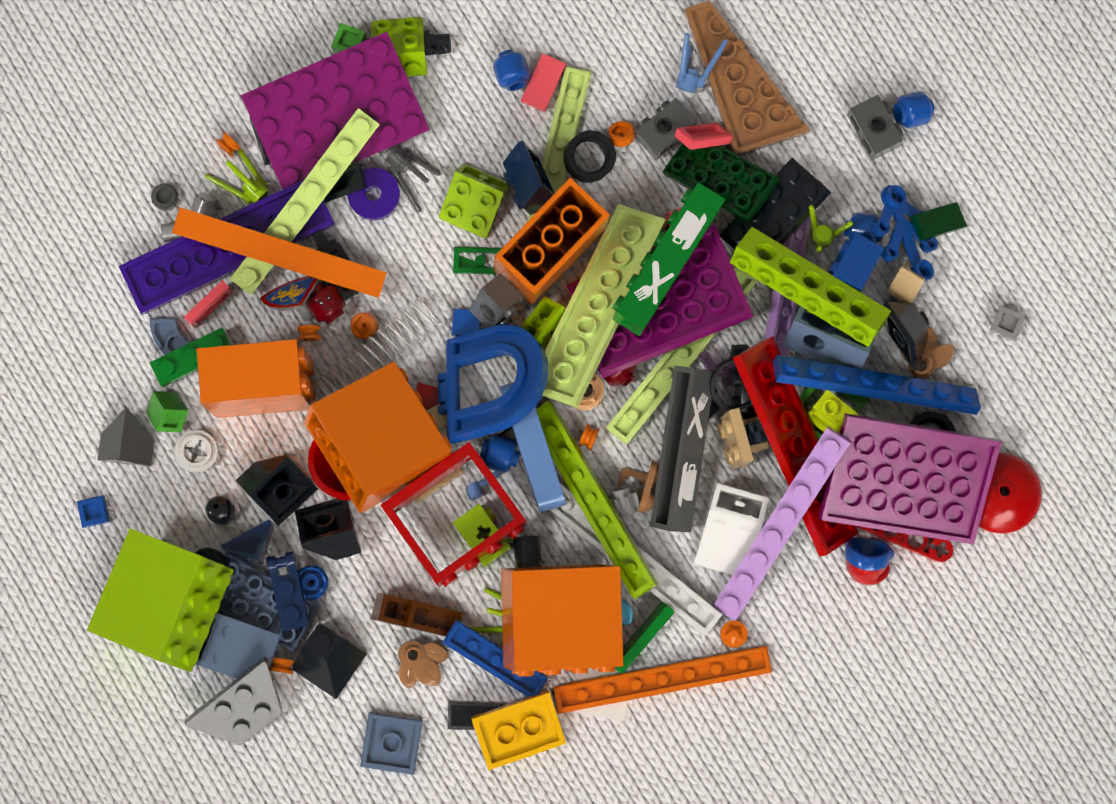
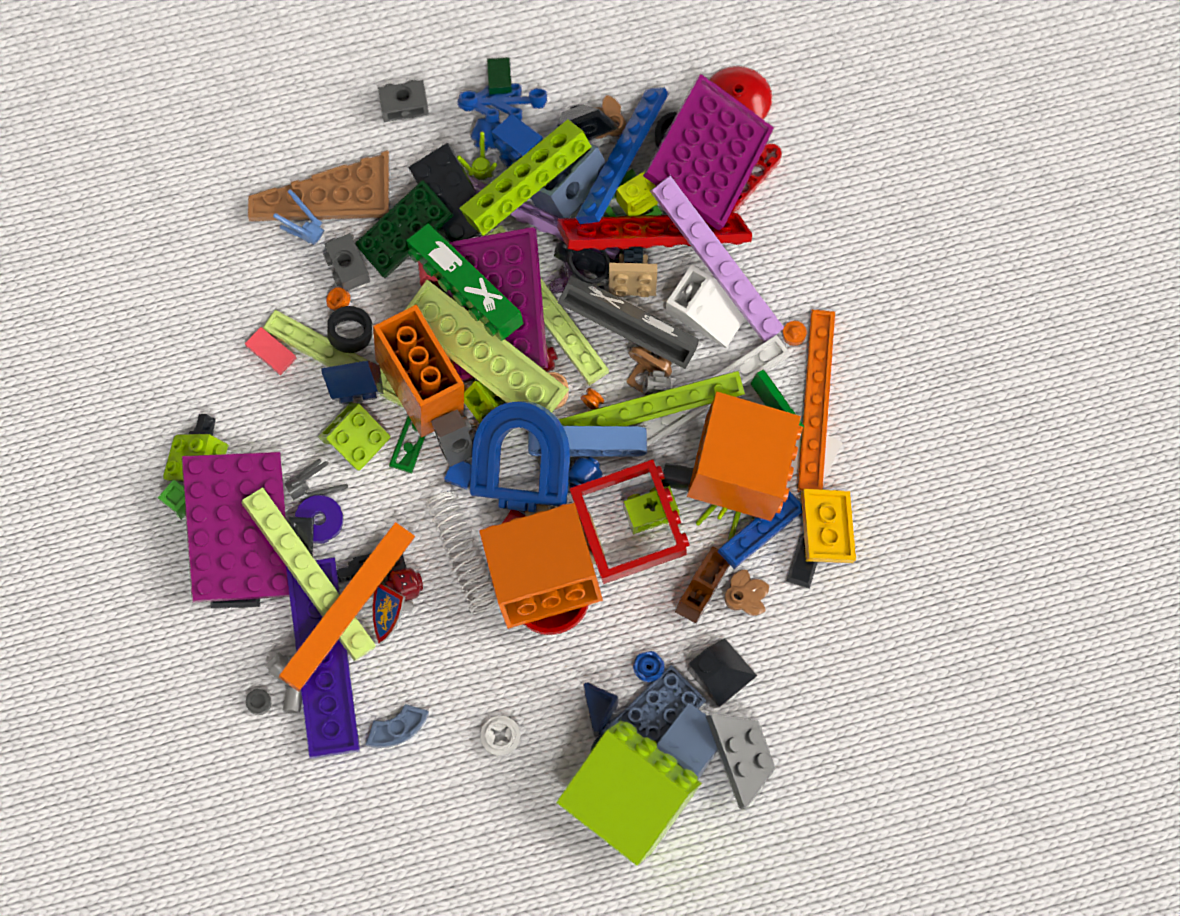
camera: 75 degrees left, 10 degrees down
(93, 511) = (526, 844): blue tile -> none
(126, 442) = (471, 796): dark grey slope -> none
(167, 411) = (456, 751): bright green panel -> none
(184, 359) = (414, 714): green plate -> none
(208, 304) = (371, 687): coral tile -> none
(219, 510) = (560, 728): black piece -> none
(227, 144) = (230, 631): orange bush -> none
(253, 189) = (278, 618): lime plant -> none
(255, 378) = (457, 651): orange brick -> none
(276, 486) = (554, 672): black slope -> none
(282, 665) = (715, 708): orange bush -> none
(288, 592) = (653, 685): dark blue plate -> none
(309, 333) = (425, 607): orange bush -> none
(328, 529) = (606, 635): black slope -> none
(364, 325) = (434, 558): orange tile -> none
(391, 743) = (809, 638): sand blue tile -> none
(474, 489) = (609, 507): medium blue hand -> none
(511, 70) = (251, 371): blue head -> none
(703, 135) = (365, 231): coral tile -> none
(868, 560) = (764, 209): blue piece -> none
(906, 284) = (543, 112): tan panel -> none
(913, 109) = (398, 67): blue head -> none
(1007, 323) = (600, 50): light grey plate -> none

